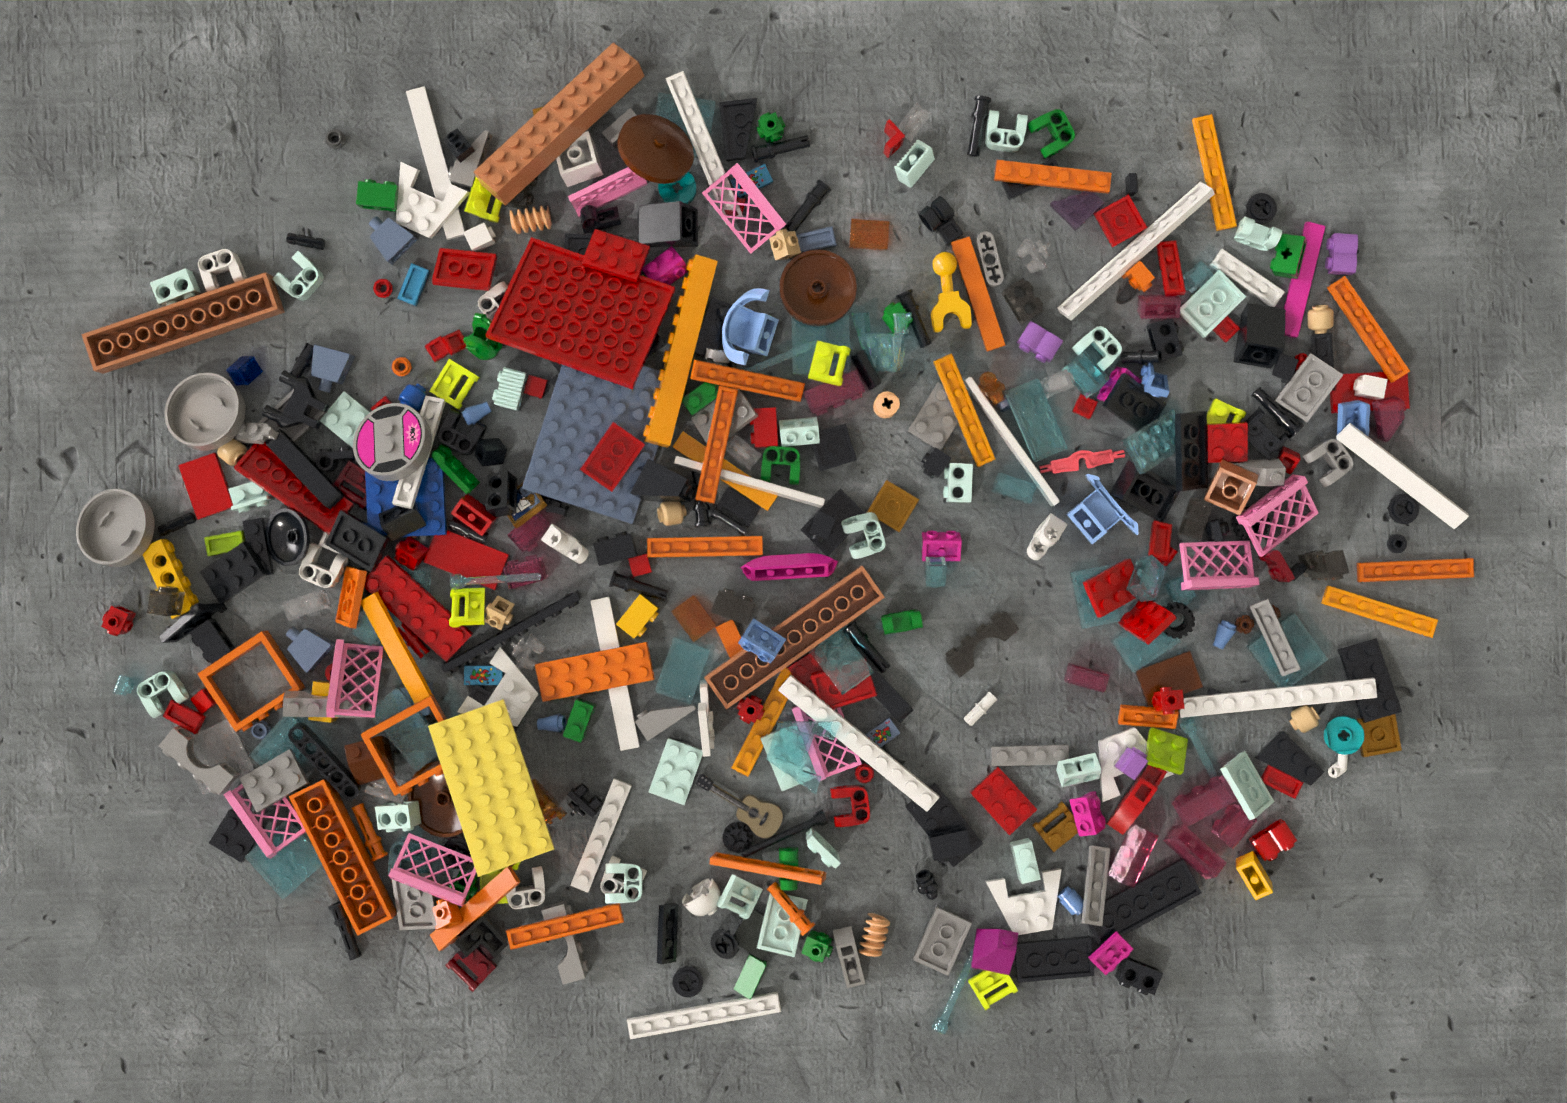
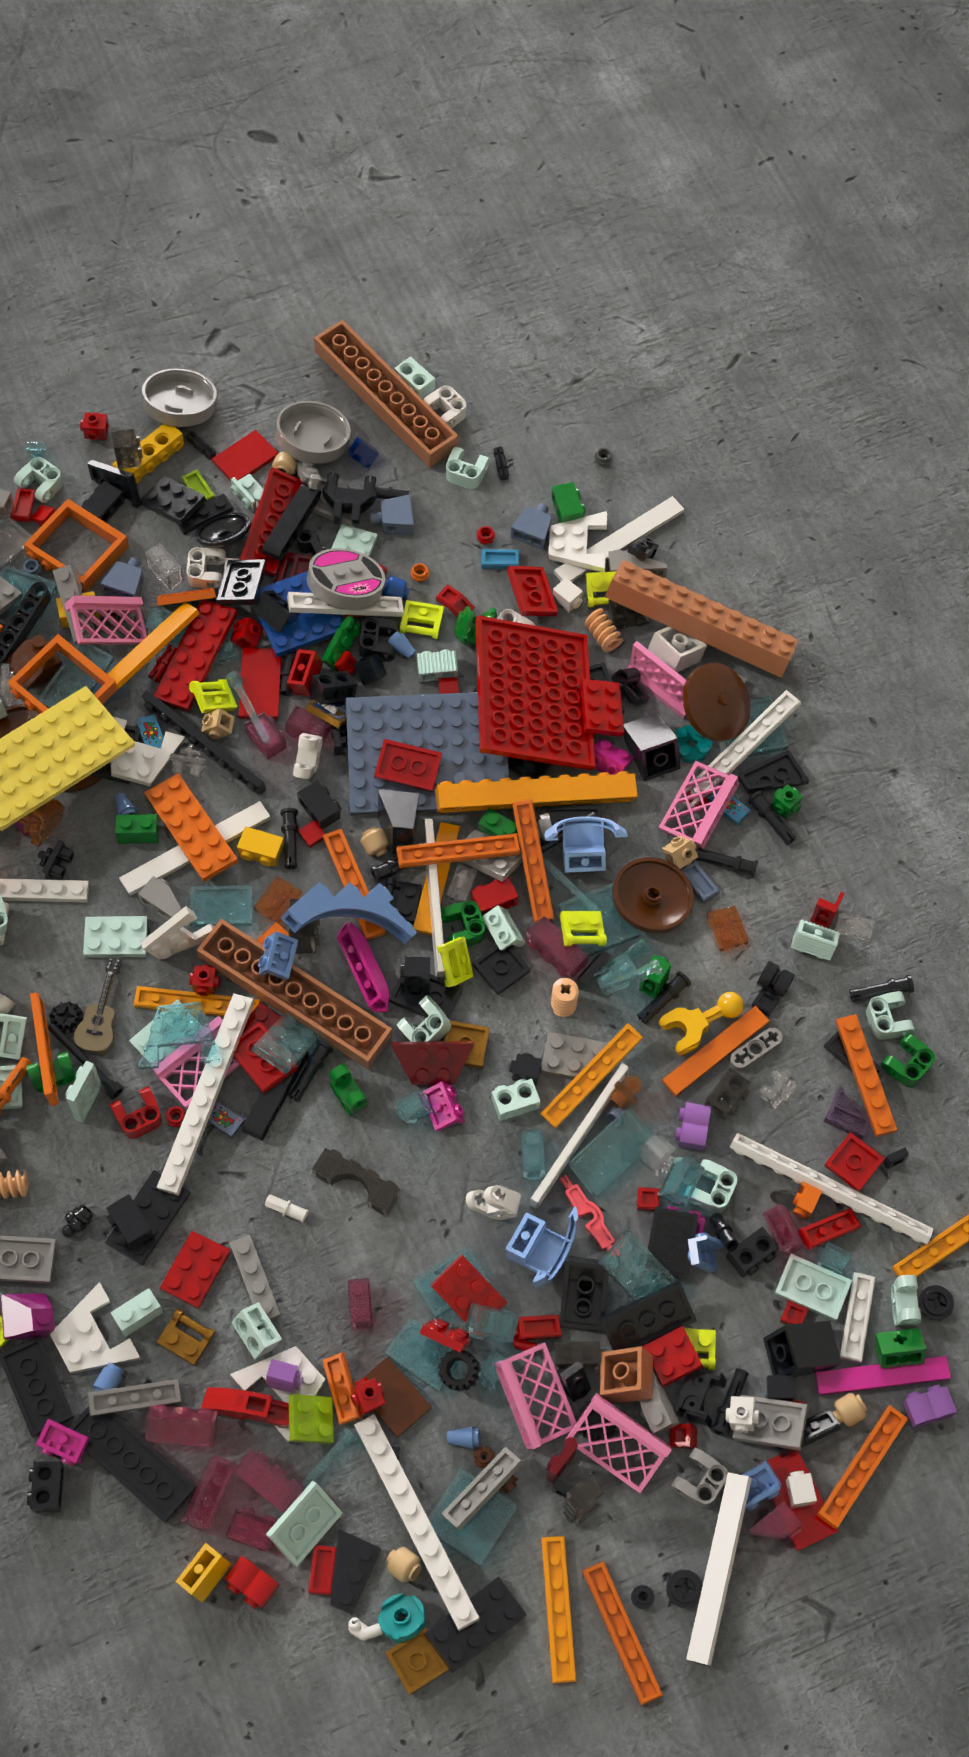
camera: 65 degrees right, 25 degrees down
(477, 472) = (346, 663): none -> red tile
(728, 588) = (349, 902): none -> medium blue arch
(818, 482) = (461, 966): none -> neon yellow plate
(900, 541) = (432, 1061): none -> dark red wing
(1088, 814) = (211, 1362): dark pink bracket -> none
(1292, 408) = (742, 1414): none -> white brick

